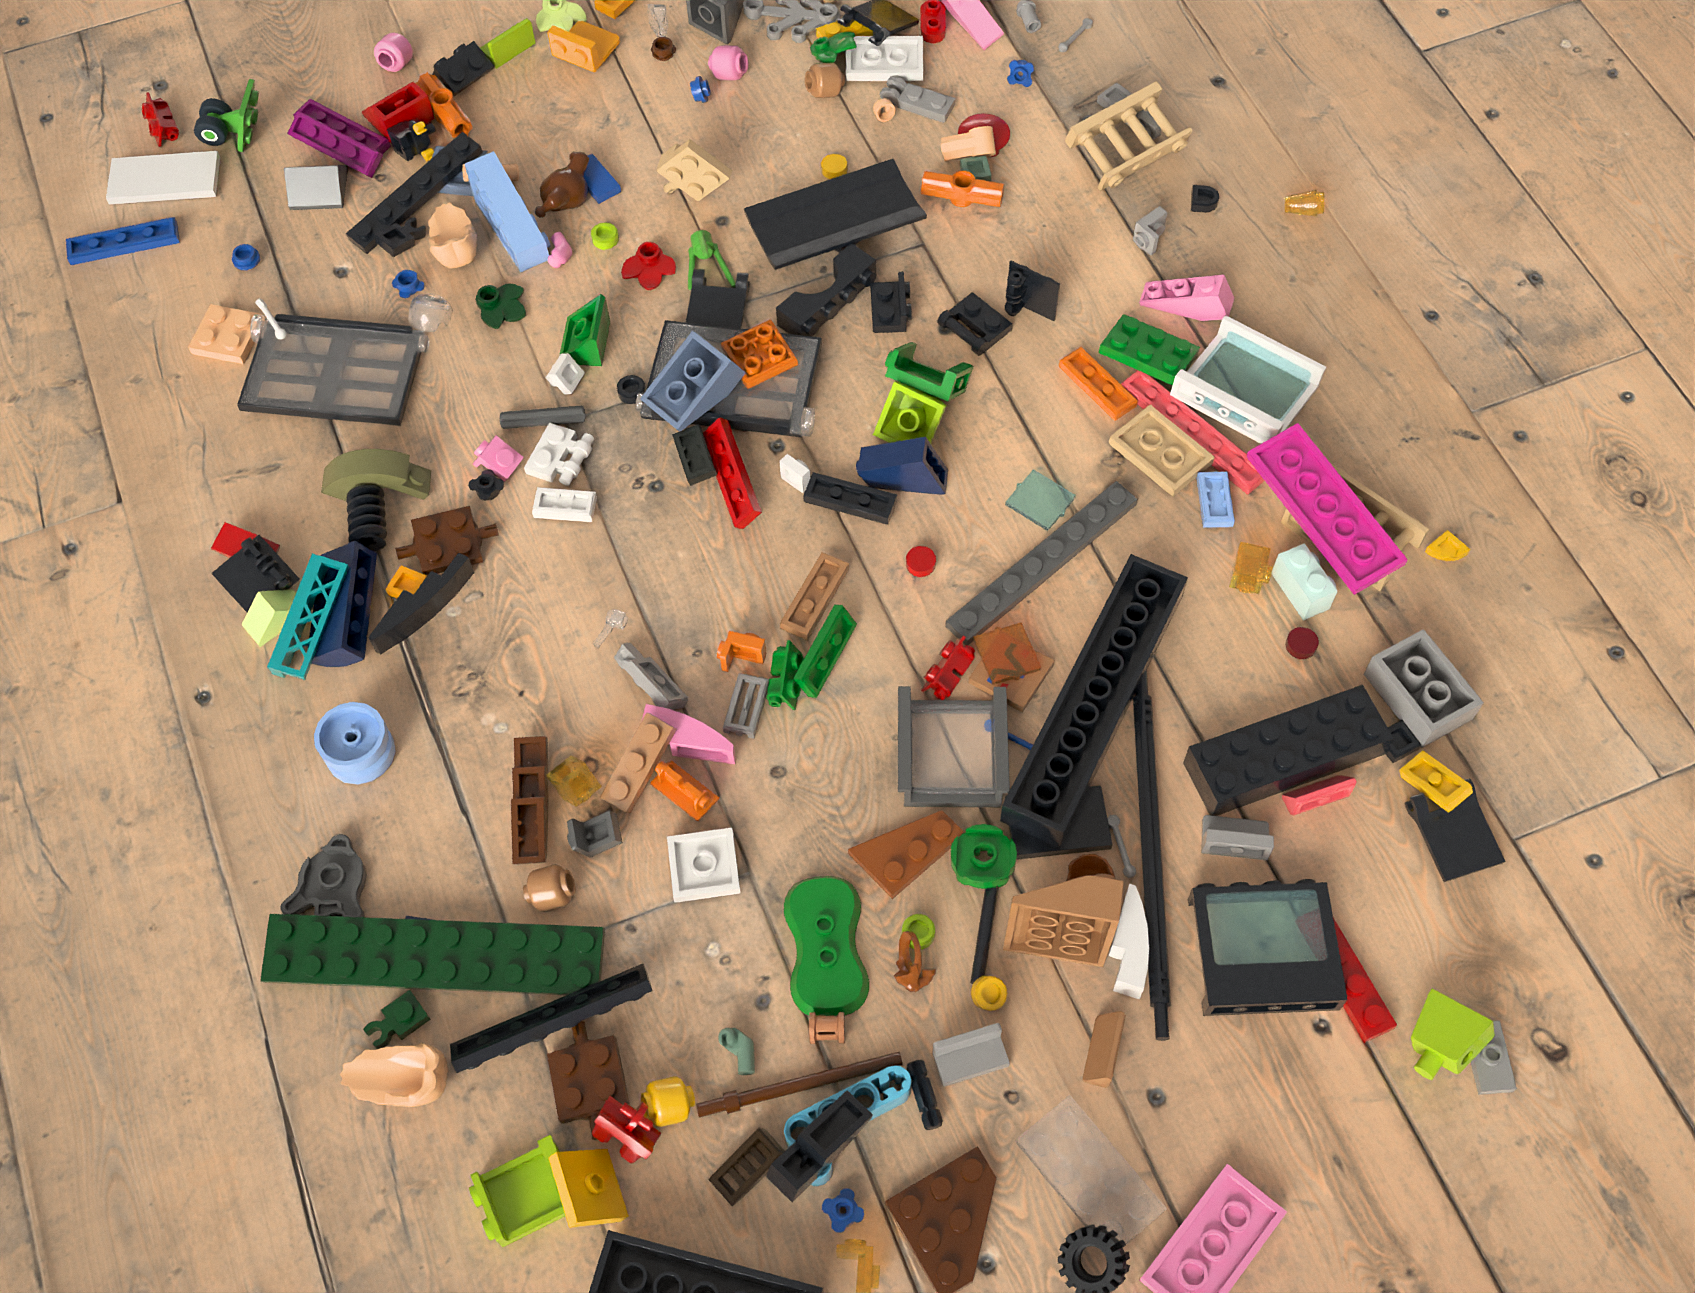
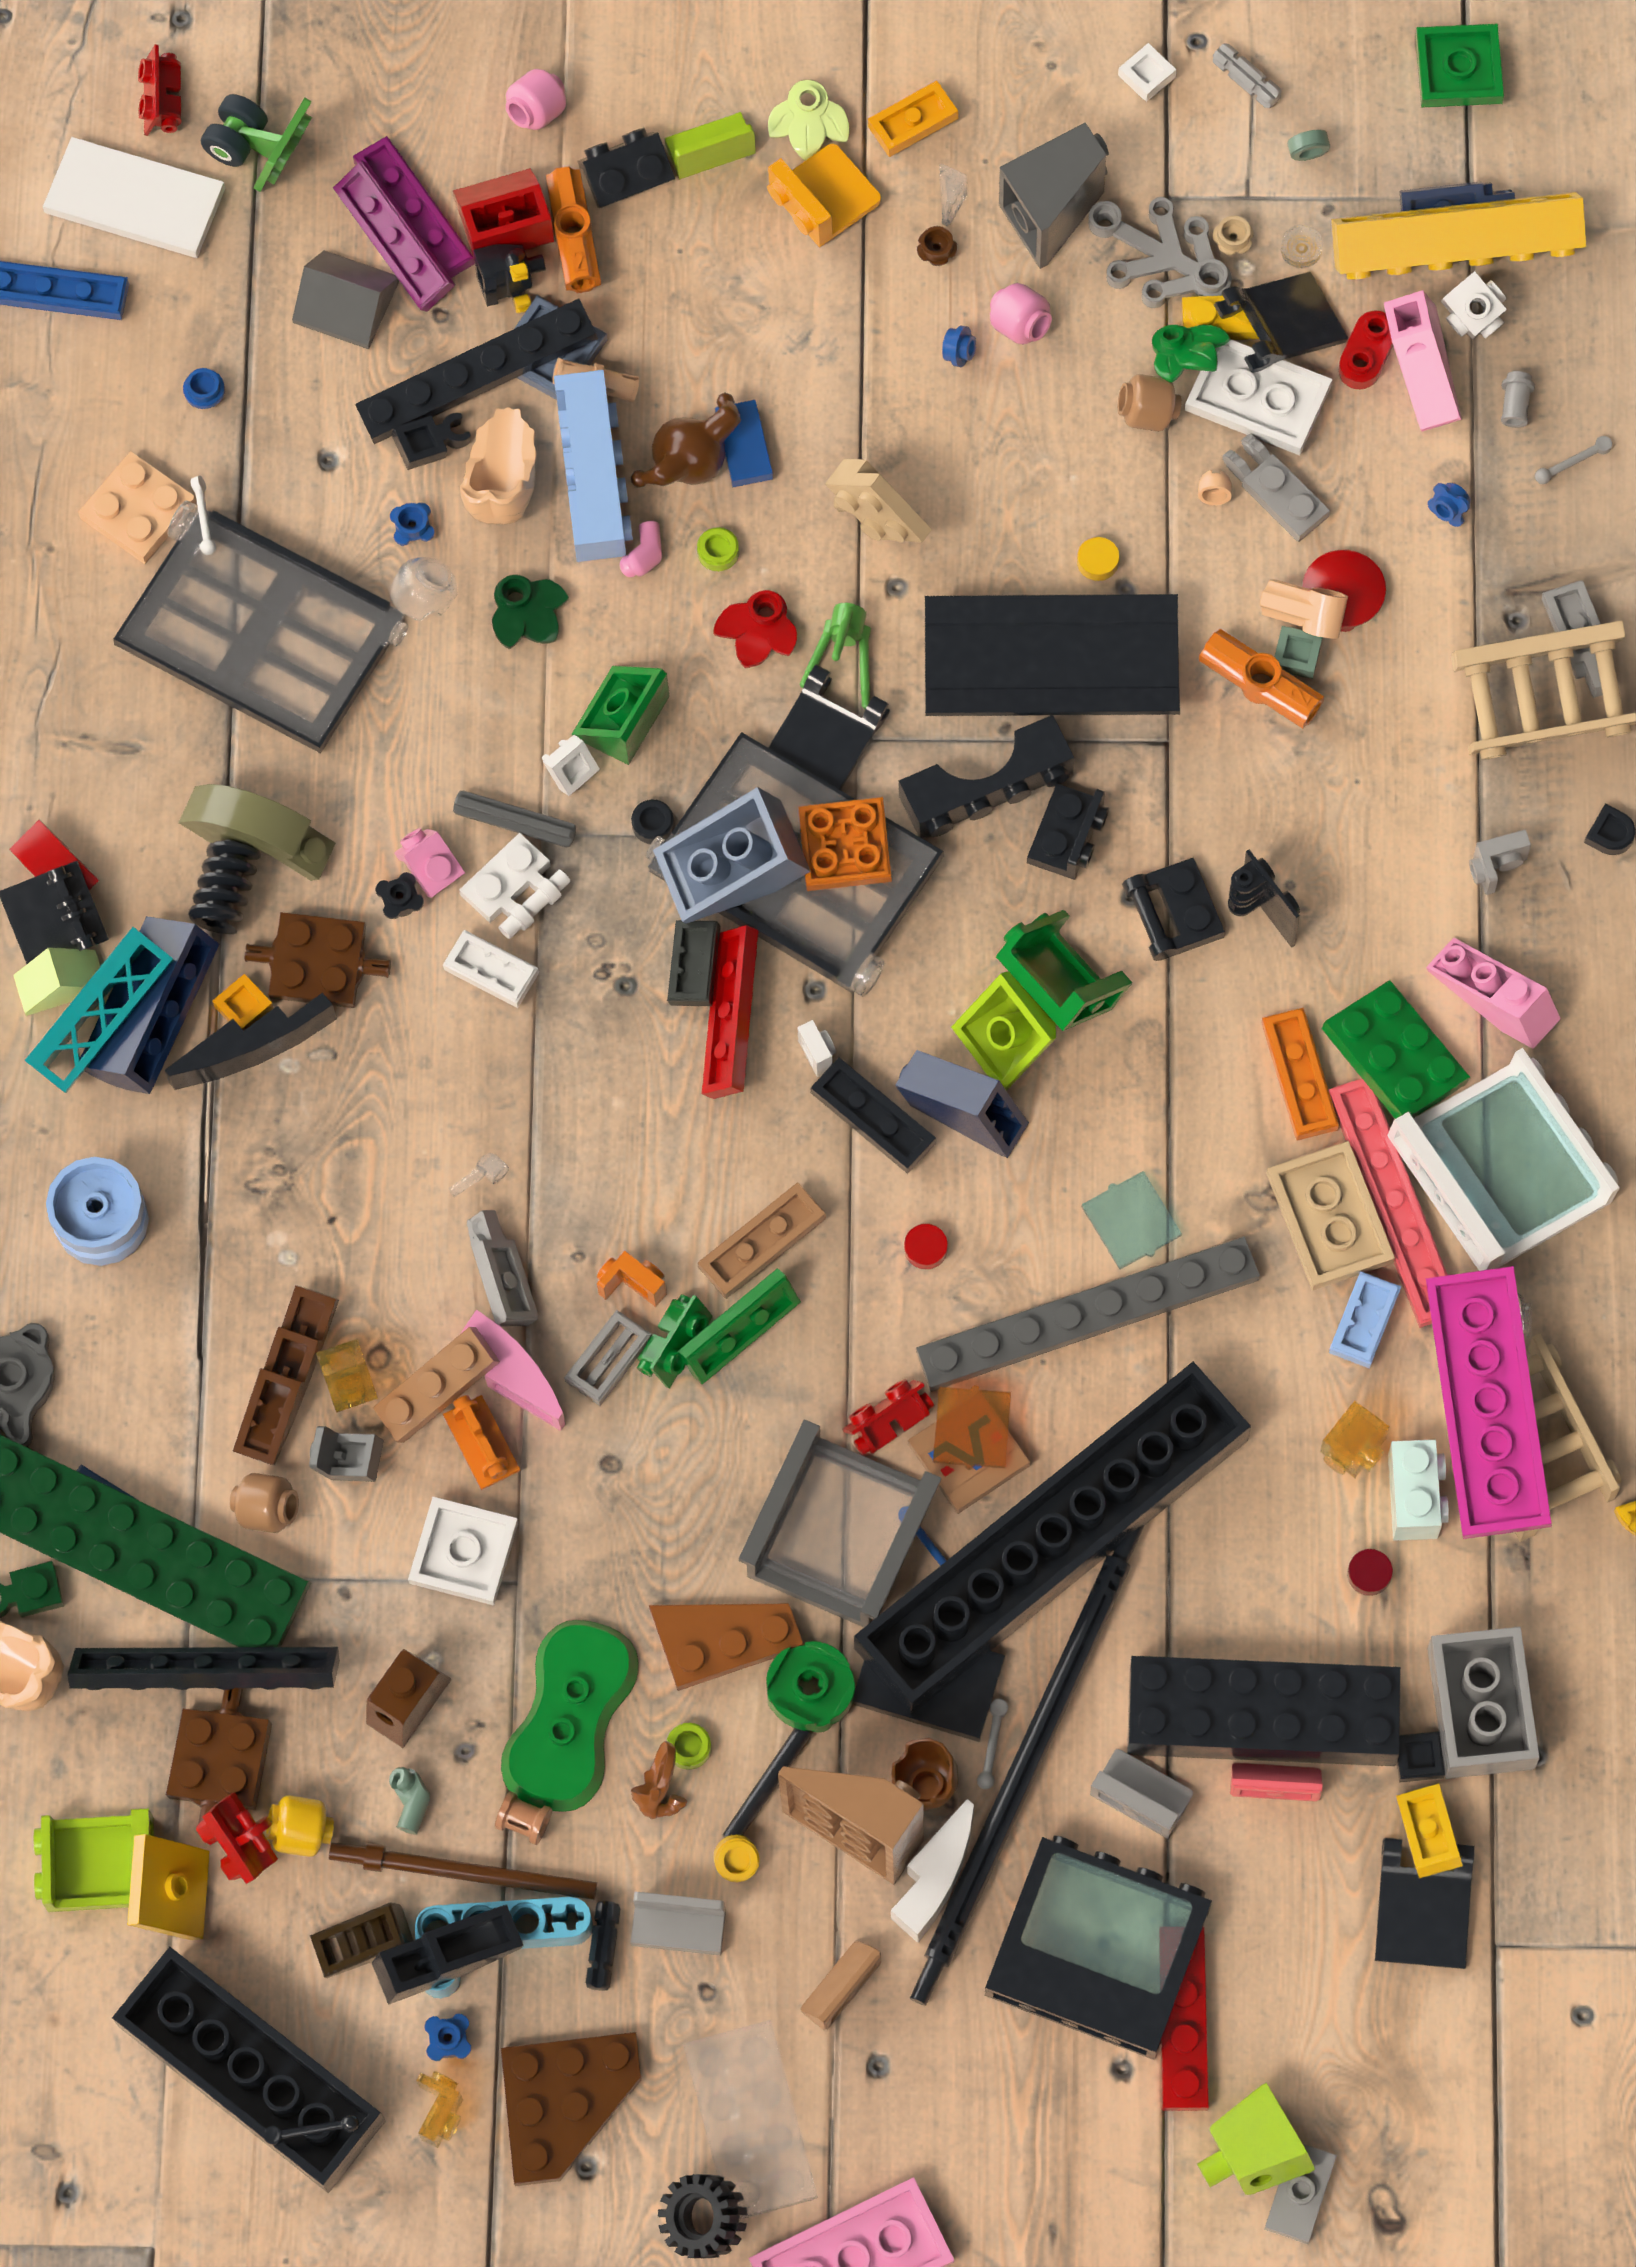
camera: 25 degrees right, 10 degrees up
(705, 974) = (404, 1696): none -> reddish brown torso

